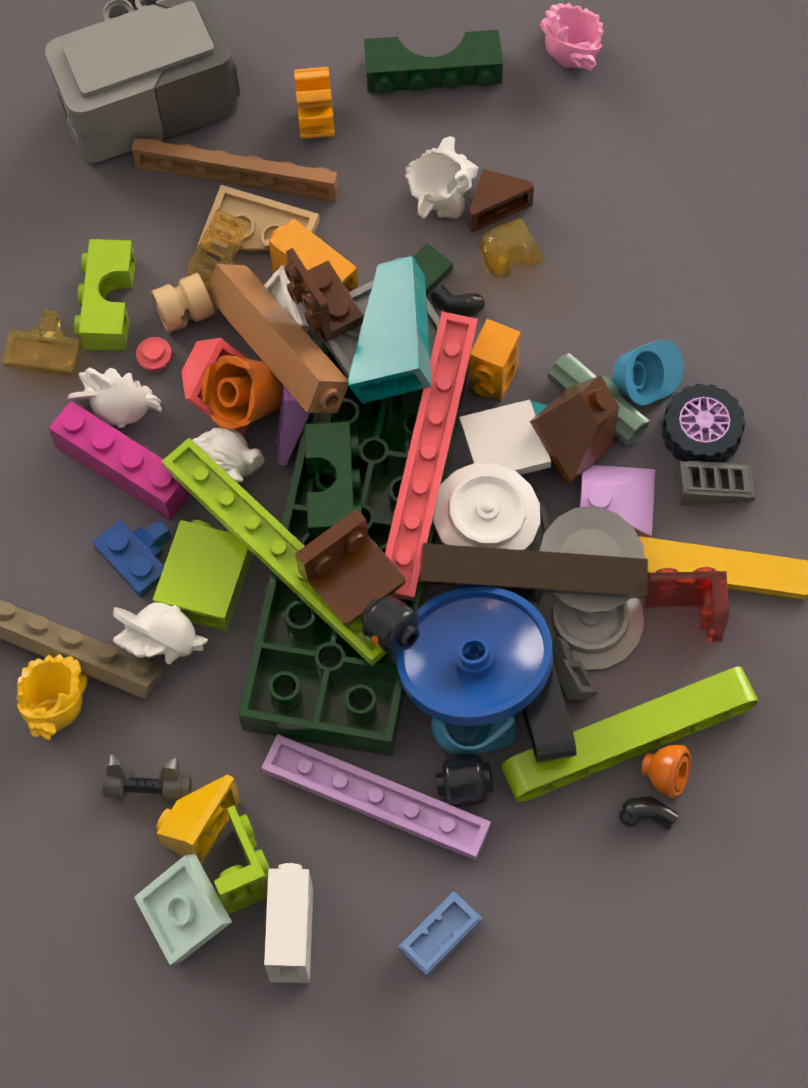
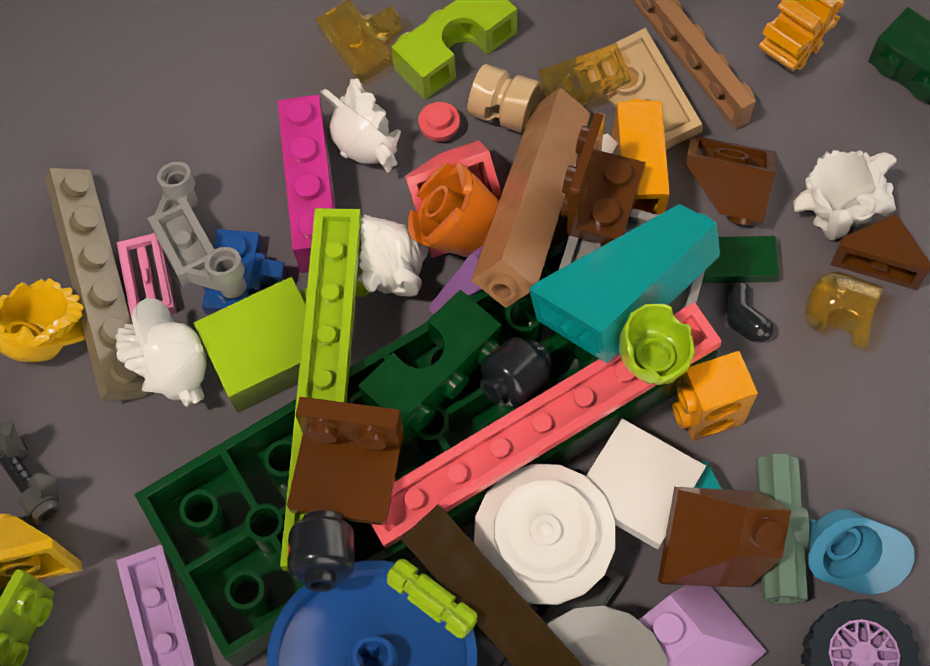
camera: 50 degrees right, 0 degrees up
(86, 562) = (185, 239): none -> light grey plate
(104, 625) = (162, 268): none -> bright pink tile
(370, 226) = (733, 177): none -> reddish brown slope
(382, 442) = (515, 372): none -> black head
(450, 350) = (656, 344): none -> lime hair
(470, 594) = (431, 598): none -> lime axle

